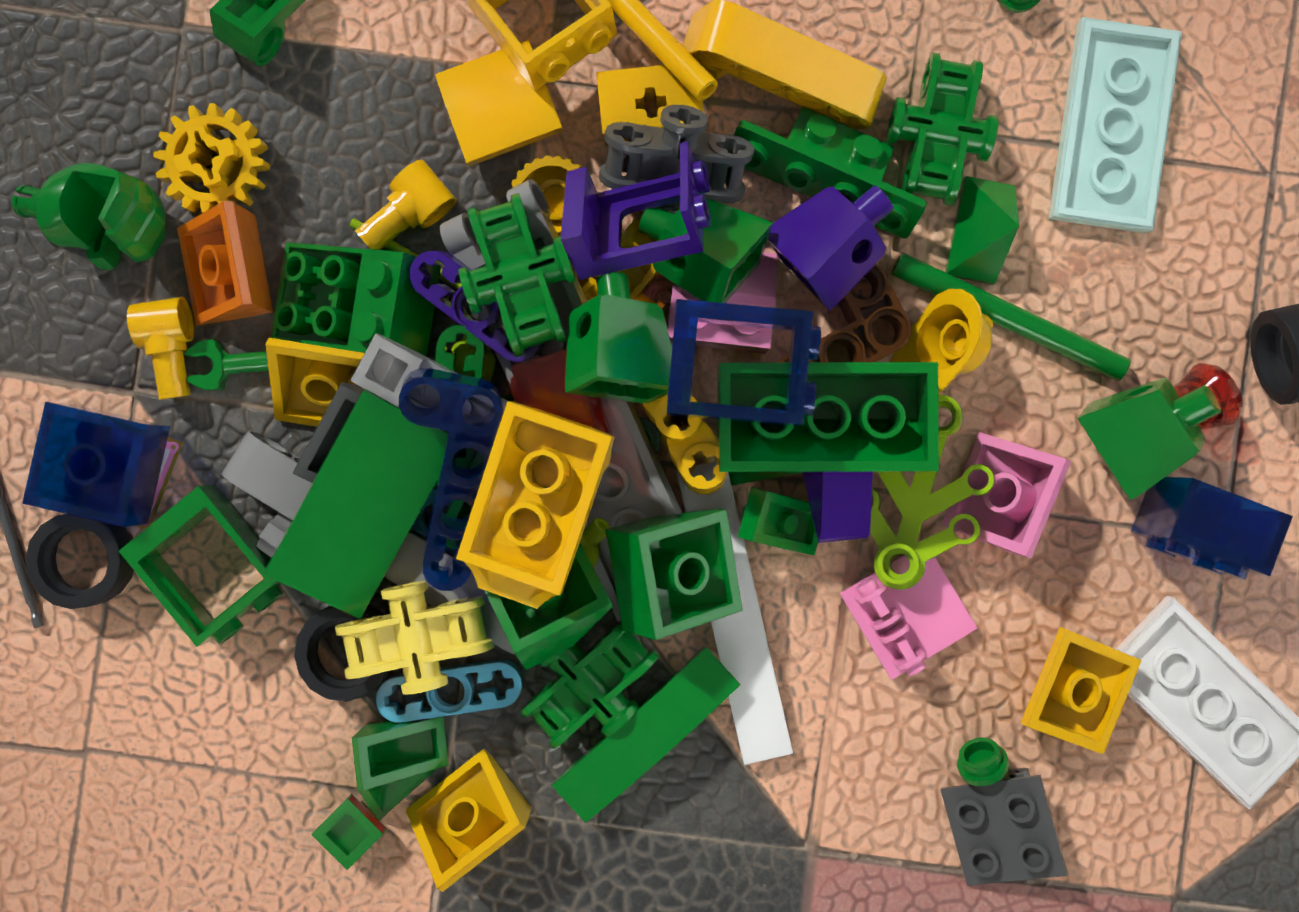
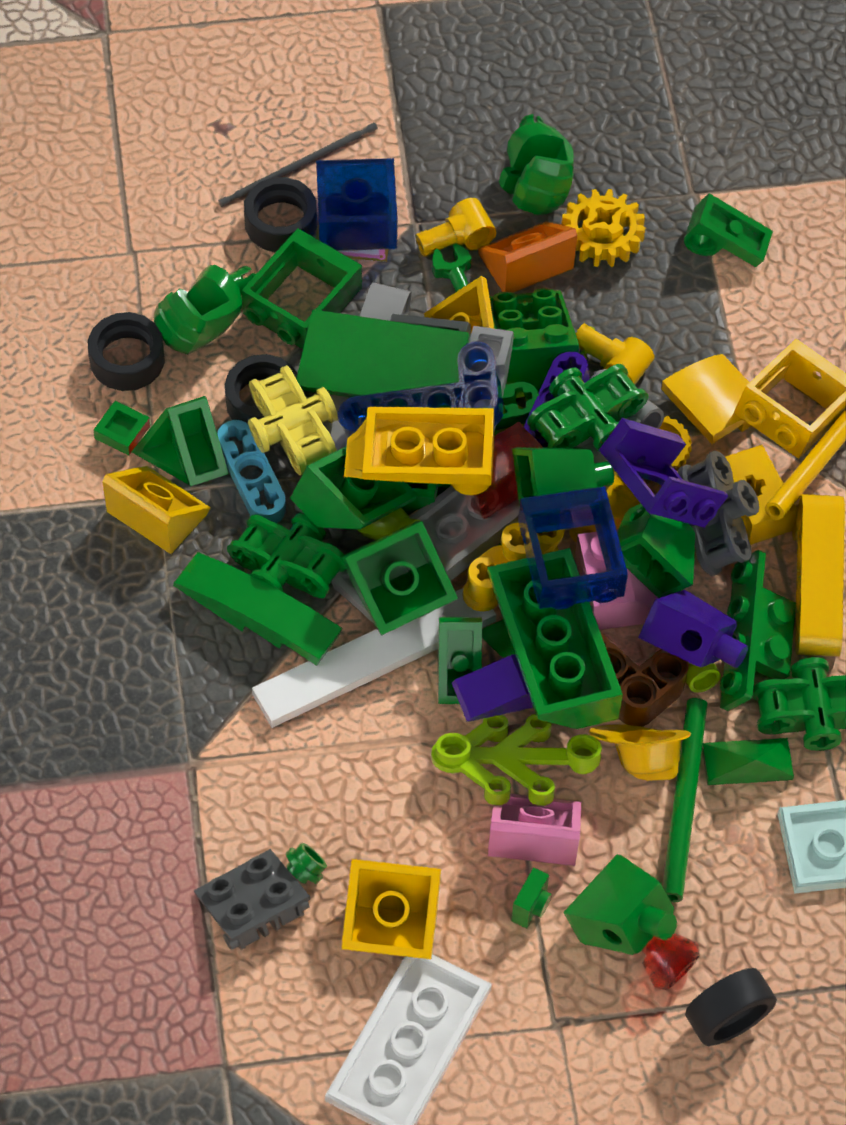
camera: 75 degrees right, 30 degrees down
(203, 686) = (203, 312): none -> green piece
(206, 822) = (126, 376): none -> black tyre
(910, 622) = (409, 783): bright pink hinge -> none
(1093, 526) = (532, 898): none -> green plate
(1211, 527) = (560, 972): clear blue brick -> none

